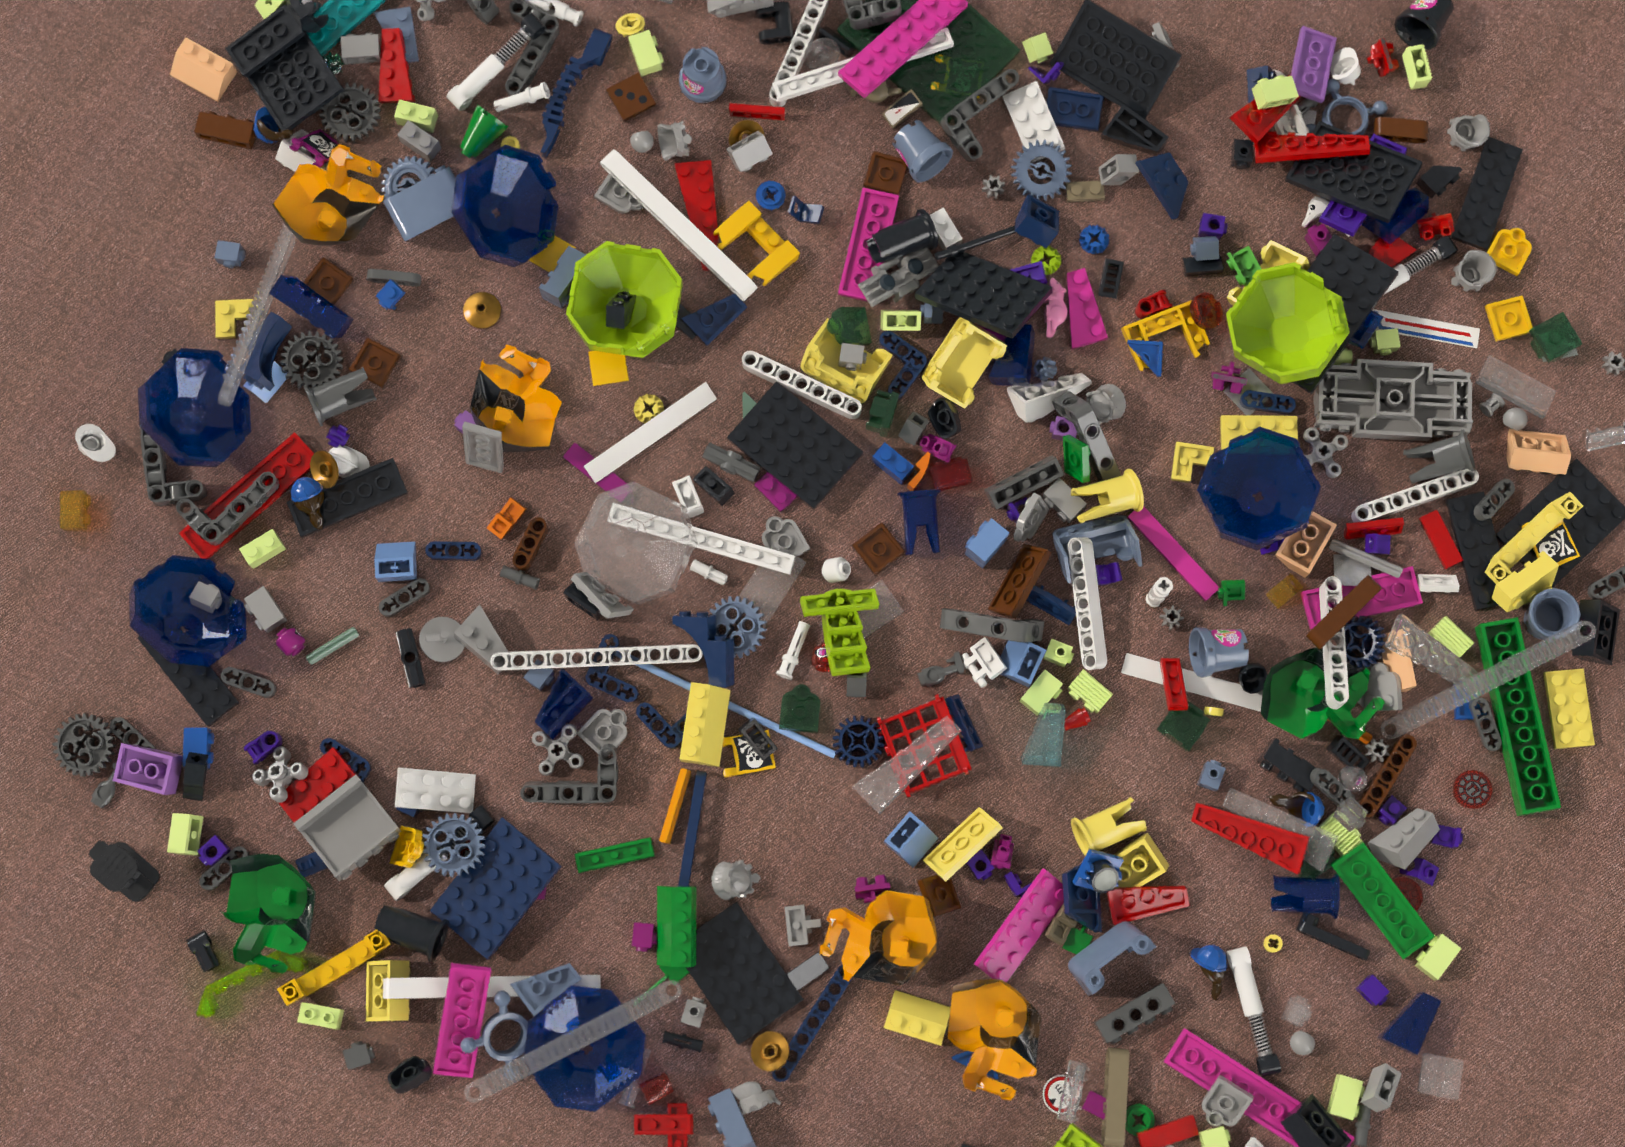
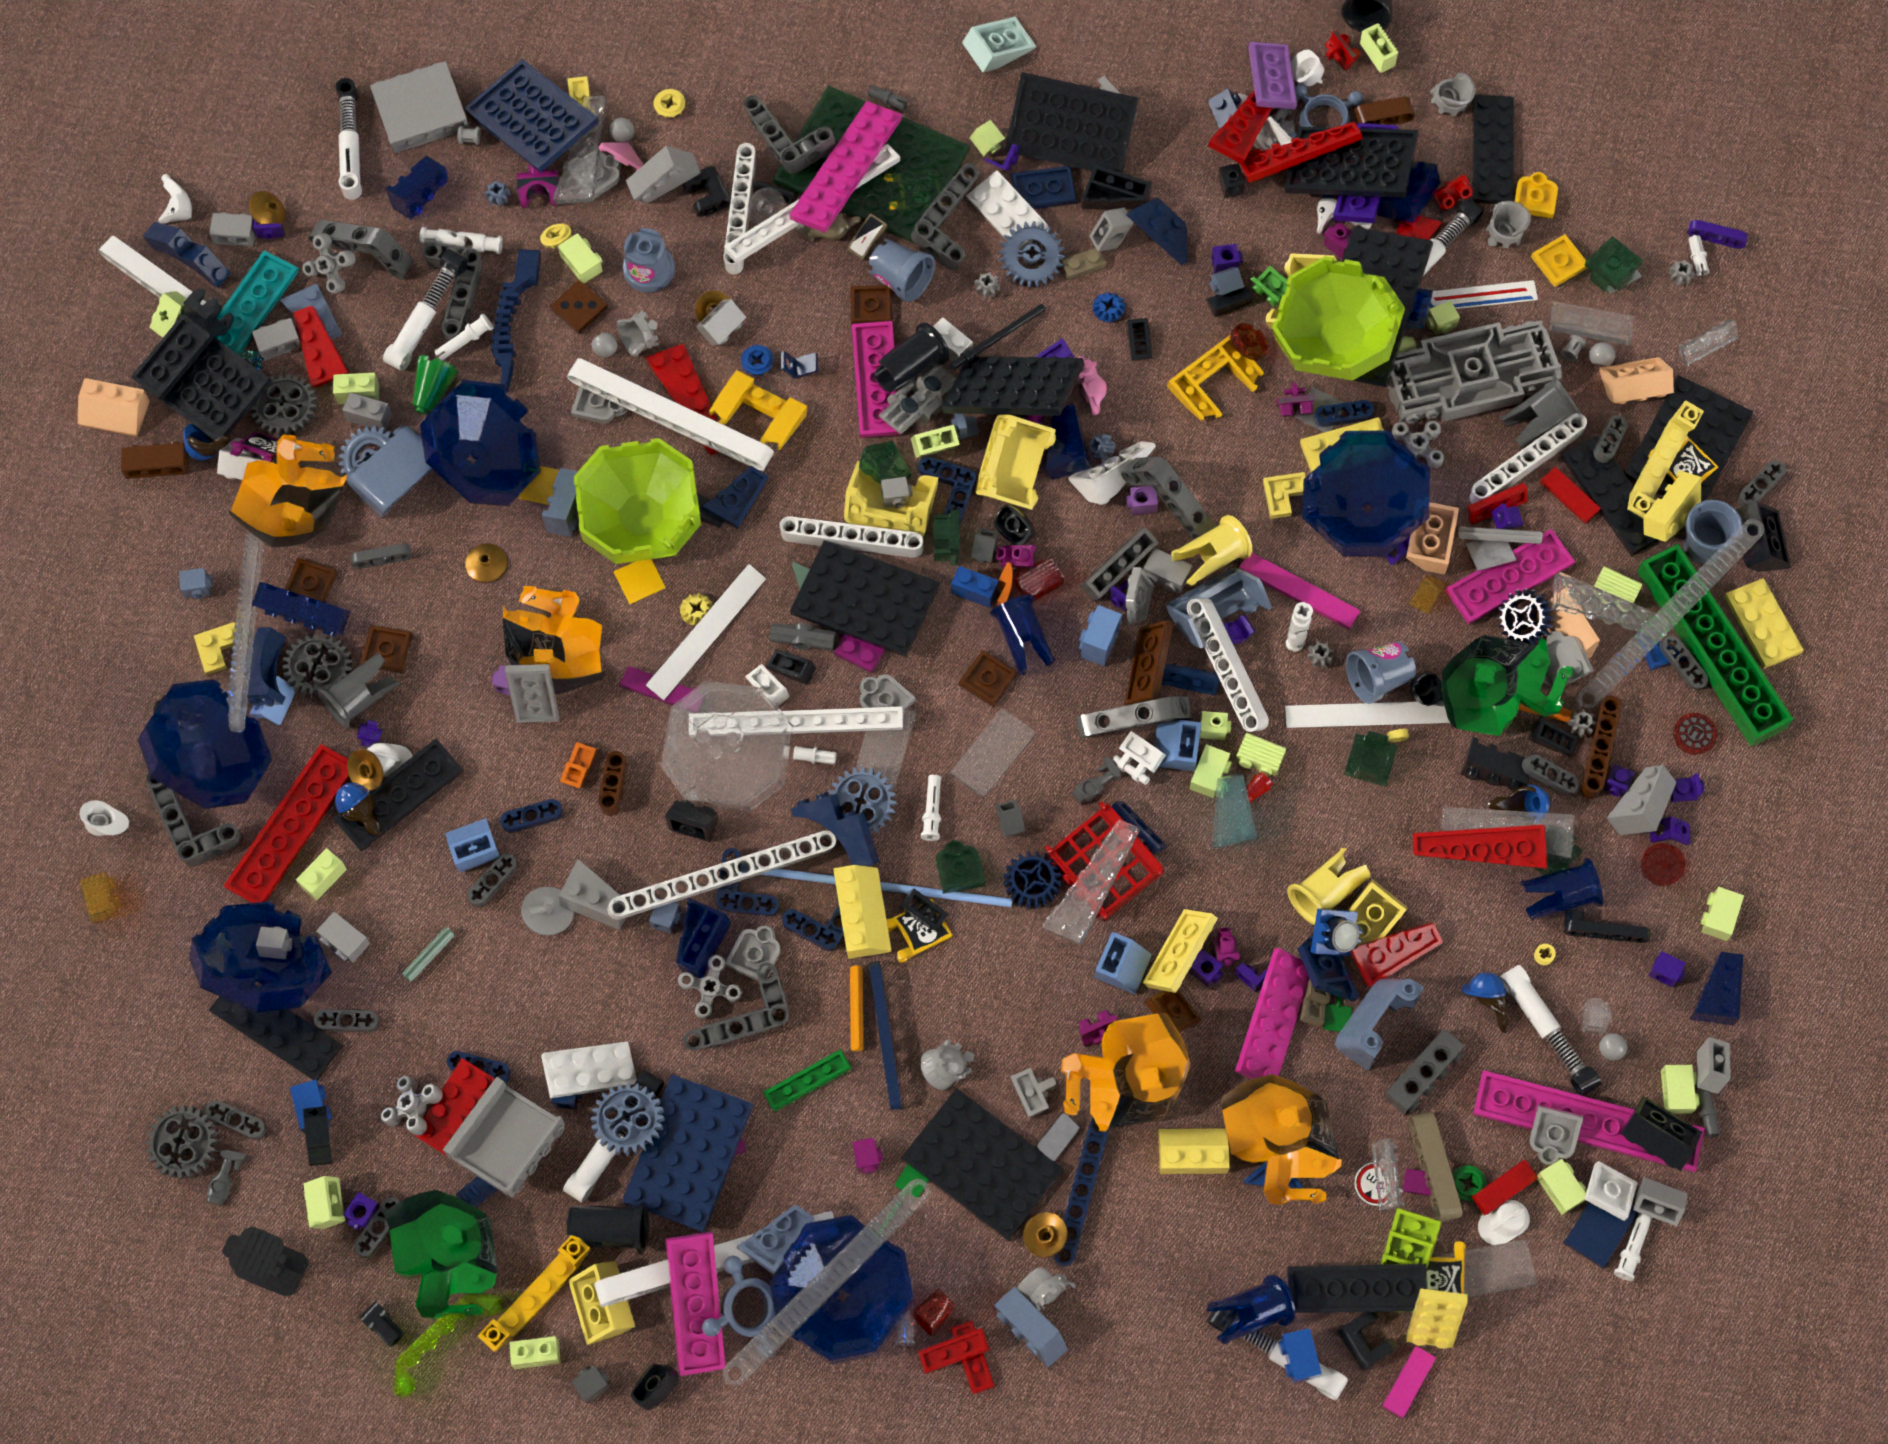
camera: 15 degrees left, 10 degrees down
(148, 769) = (262, 1144): medium lavender slope -> none
(229, 519) = (277, 851): dark grey beam -> none
(260, 749) = (382, 1083): dark purple piece -> none
(290, 641) = (380, 962): magenta head -> none
(390, 295) = (383, 573): blue bracket -> none
(407, 847) = (577, 1139): yellow plate -> none
(414, 669) = (512, 929): black piece -> none
(519, 577) = (612, 821): dark grey pin -> none
(595, 591) = (716, 813): light grey wing -> none
(620, 310) = (635, 515): black slope -> none
(669, 1039) = (946, 1255): black pin -> none
(676, 926) = (899, 1130): green slope -> none
(694, 1012) = (948, 1220): light grey brick -> none
(756, 111) = (716, 282): red tile -> none
(820, 659) = (967, 804): clear red head -> none
(836, 570) = (950, 711): white head -> none
(842, 626) = (977, 764): lime slope -> none
(1037, 221) = (1044, 304): dark blue slope -> none
(1054, 263) = (1075, 341): lime gear -> none
(1076, 458) = (1166, 522): green plate -> none
(1084, 315) = (1122, 380): dark pink wing -> none
(1107, 402) = (1181, 458): light grey hair -> none
(1150, 353) = (1205, 398): blue tile -> none
(1156, 303) = (1192, 349): red piece -> none
(1173, 684) = (1346, 719): red tile -> none
(1211, 775) = (1418, 801): sand blue brick -> none
(1231, 590) = (1373, 608): green bracket -> none
(1275, 92) = (1245, 108): yellowish green brick -> none
(1332, 651) = (1493, 613): white beam -> none
(1343, 612) = (1498, 588): reddish brown beam -> none
(1346, 839) = (1585, 819): yellowish green brick -> none
(1350, 814) = (1579, 793): clear brick -> none
(1353, 778) = (1568, 757): clear head -> none
(1382, 900) = (1644, 872): green plate -> none
(1437, 178) = (1439, 146): black slope -> none
(1437, 583) = (1585, 537): white plate -> none
(1440, 1076) = (1770, 1036): clear plate -> none

